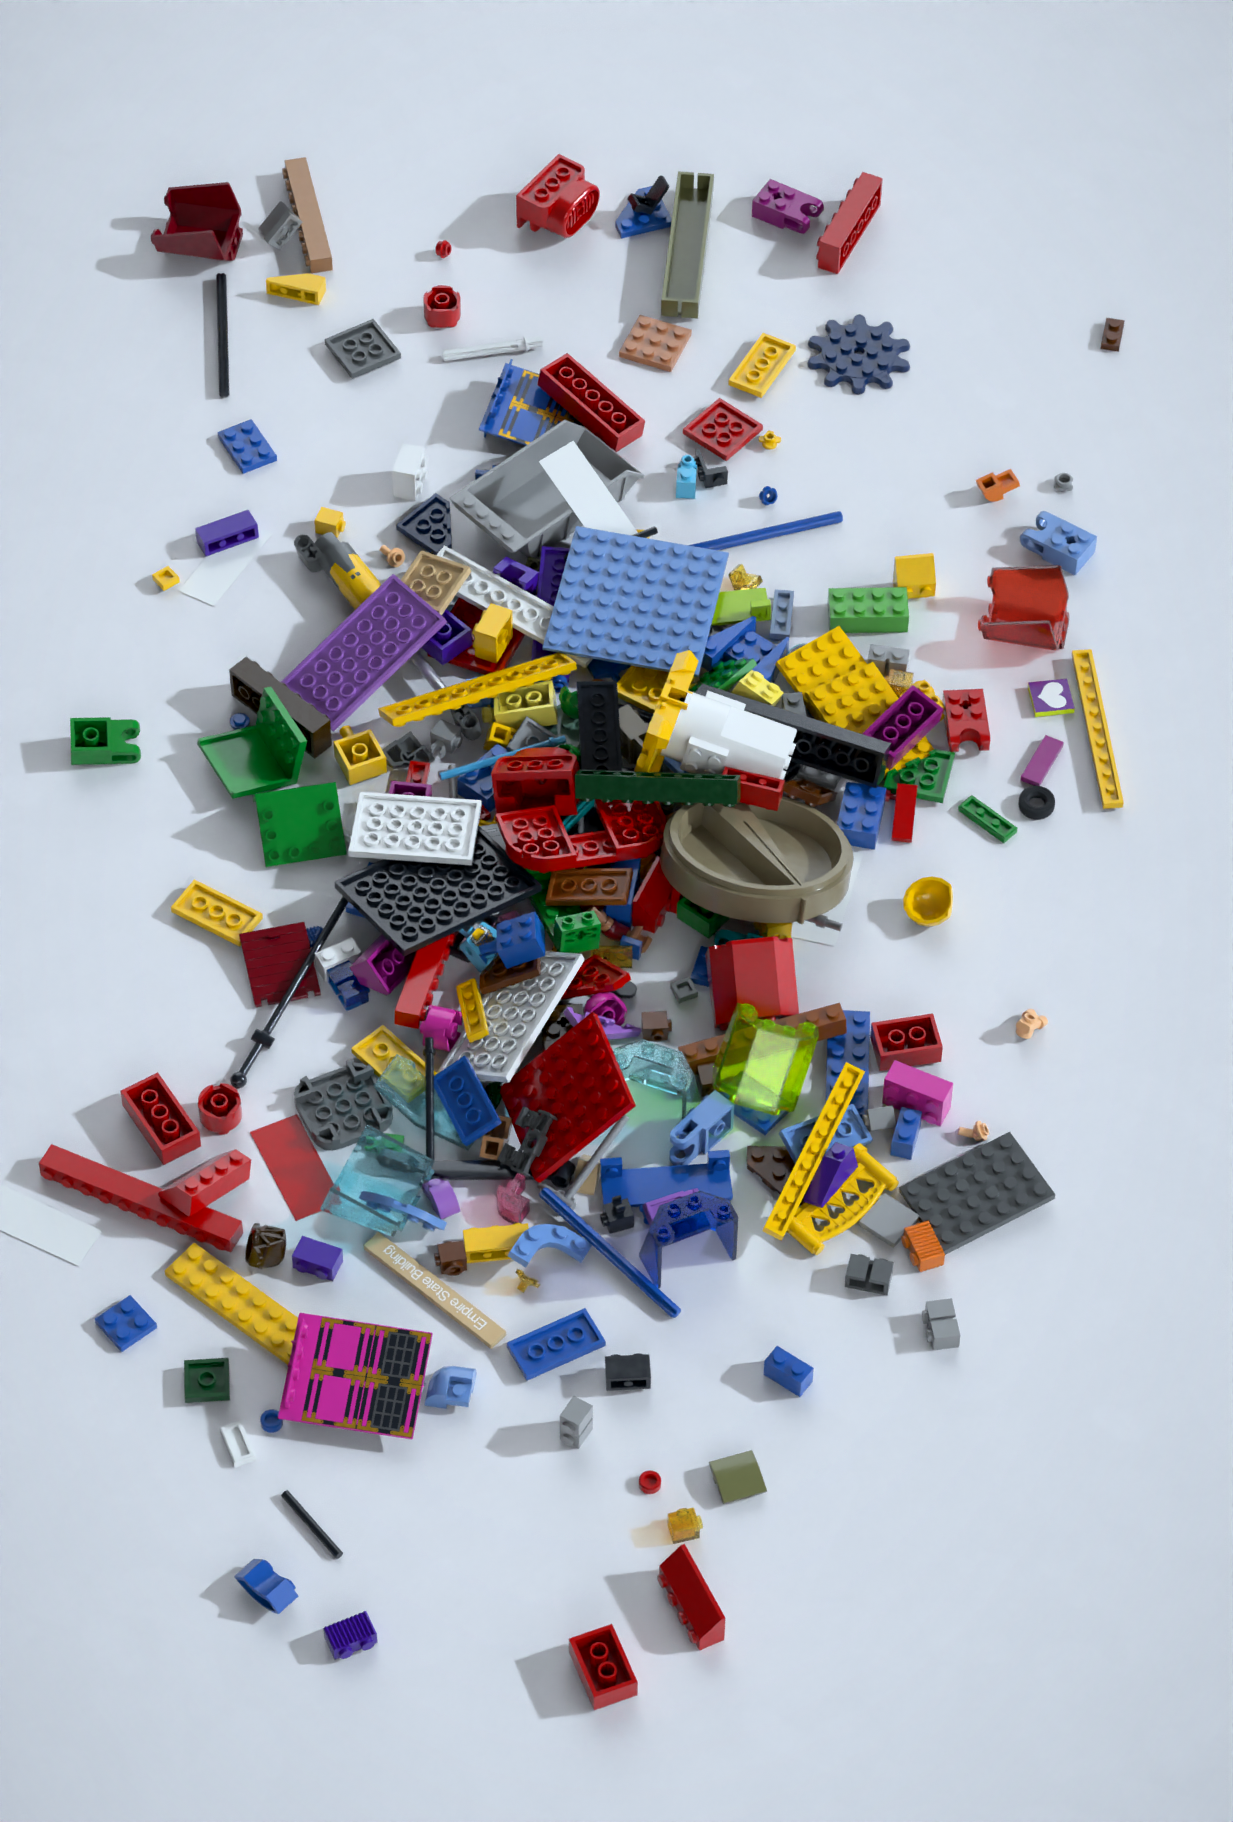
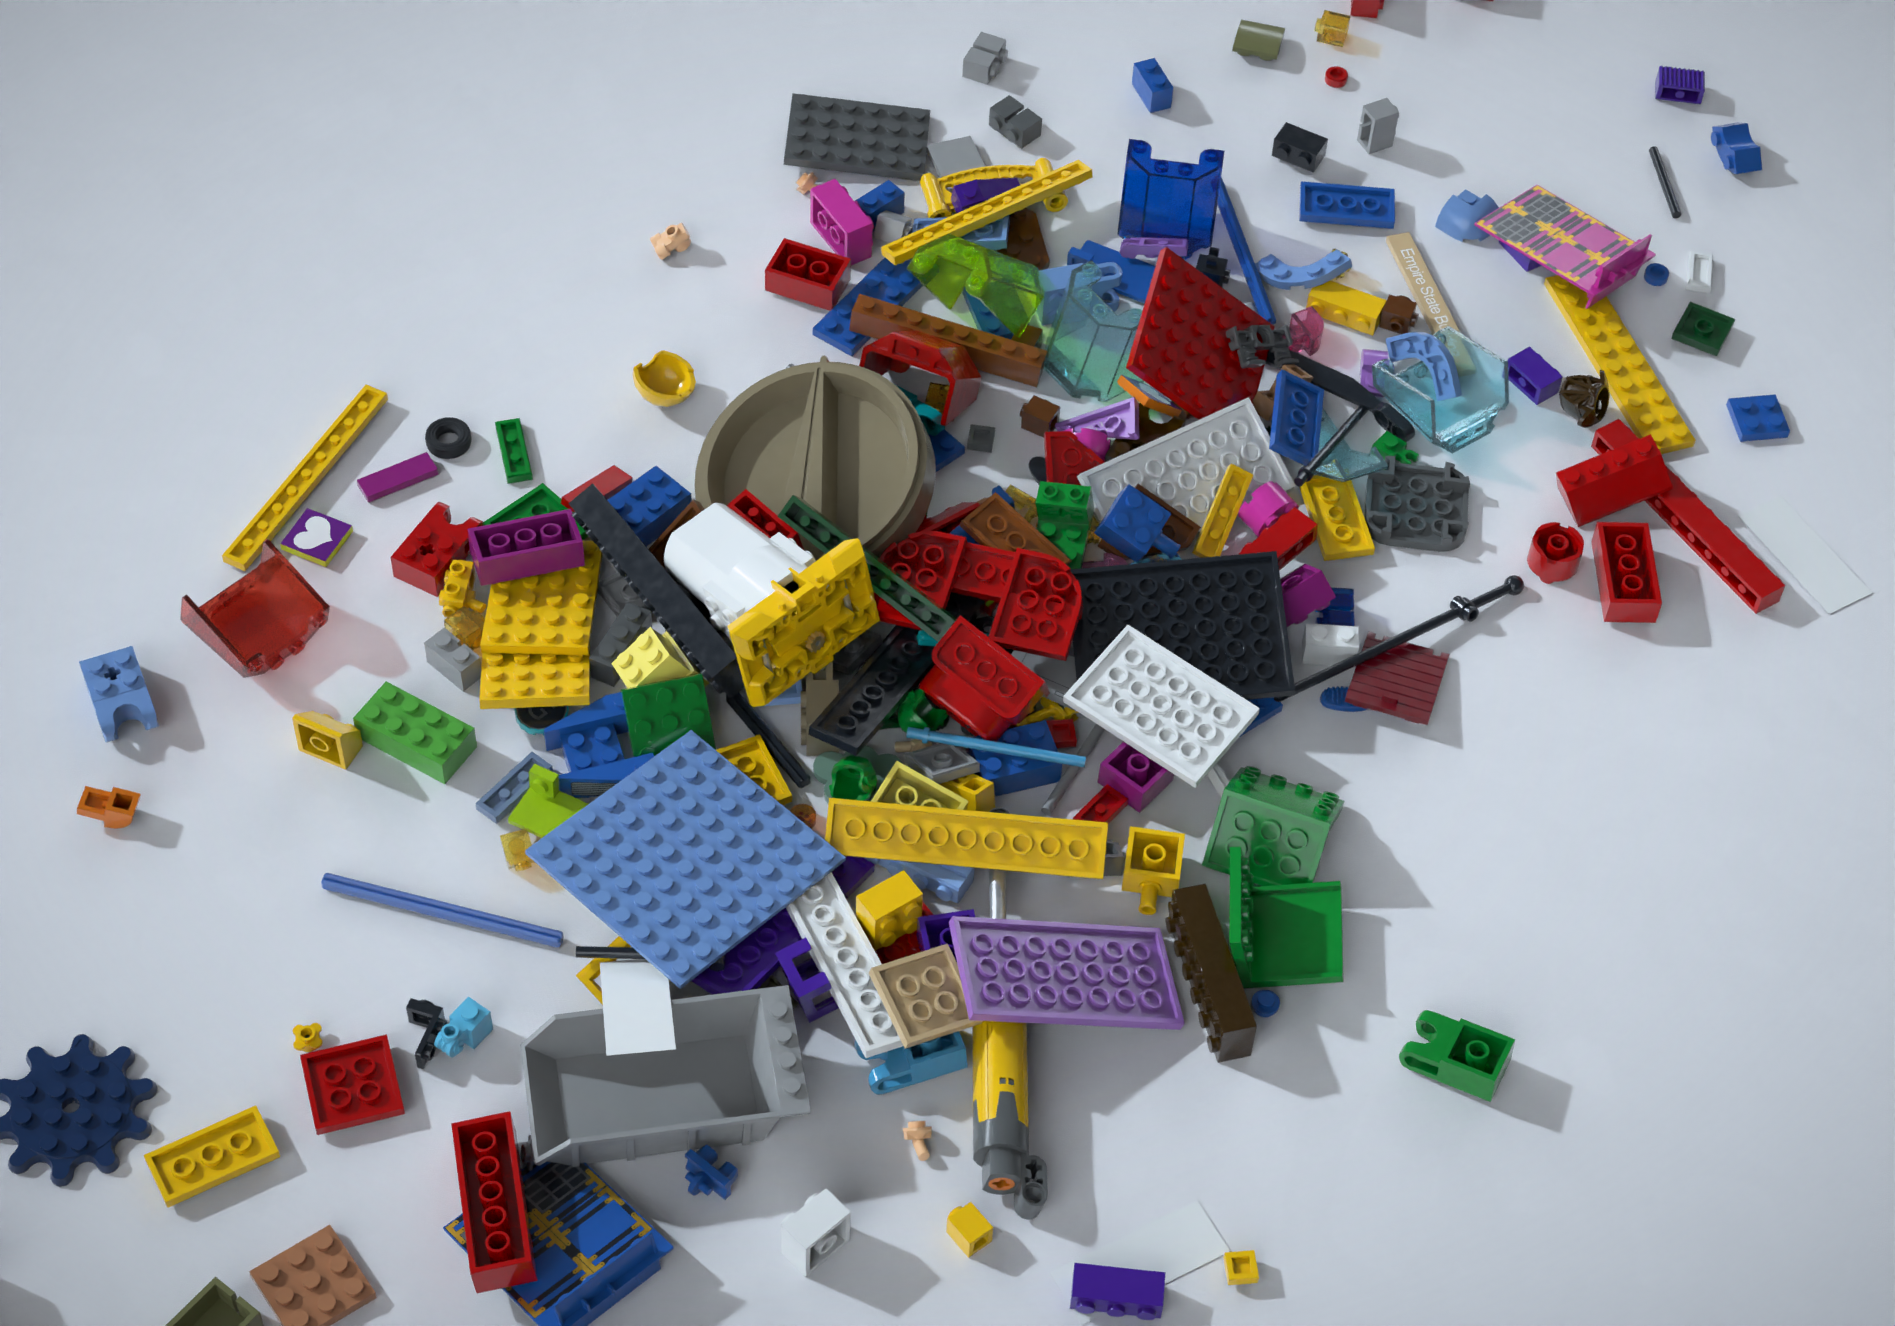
camera: 150 degrees left, 0 degrees up
(216, 912) = (1435, 773): yellow plate -> none
(294, 1165) = (1500, 482): red sticker -> none
(429, 525) = (838, 1152): dark blue plate -> none
(768, 500) = (385, 953): blue plate -> none
(923, 1246) = (946, 119): orange brick -> none
(1063, 482) = (26, 771): light grey plate -> none

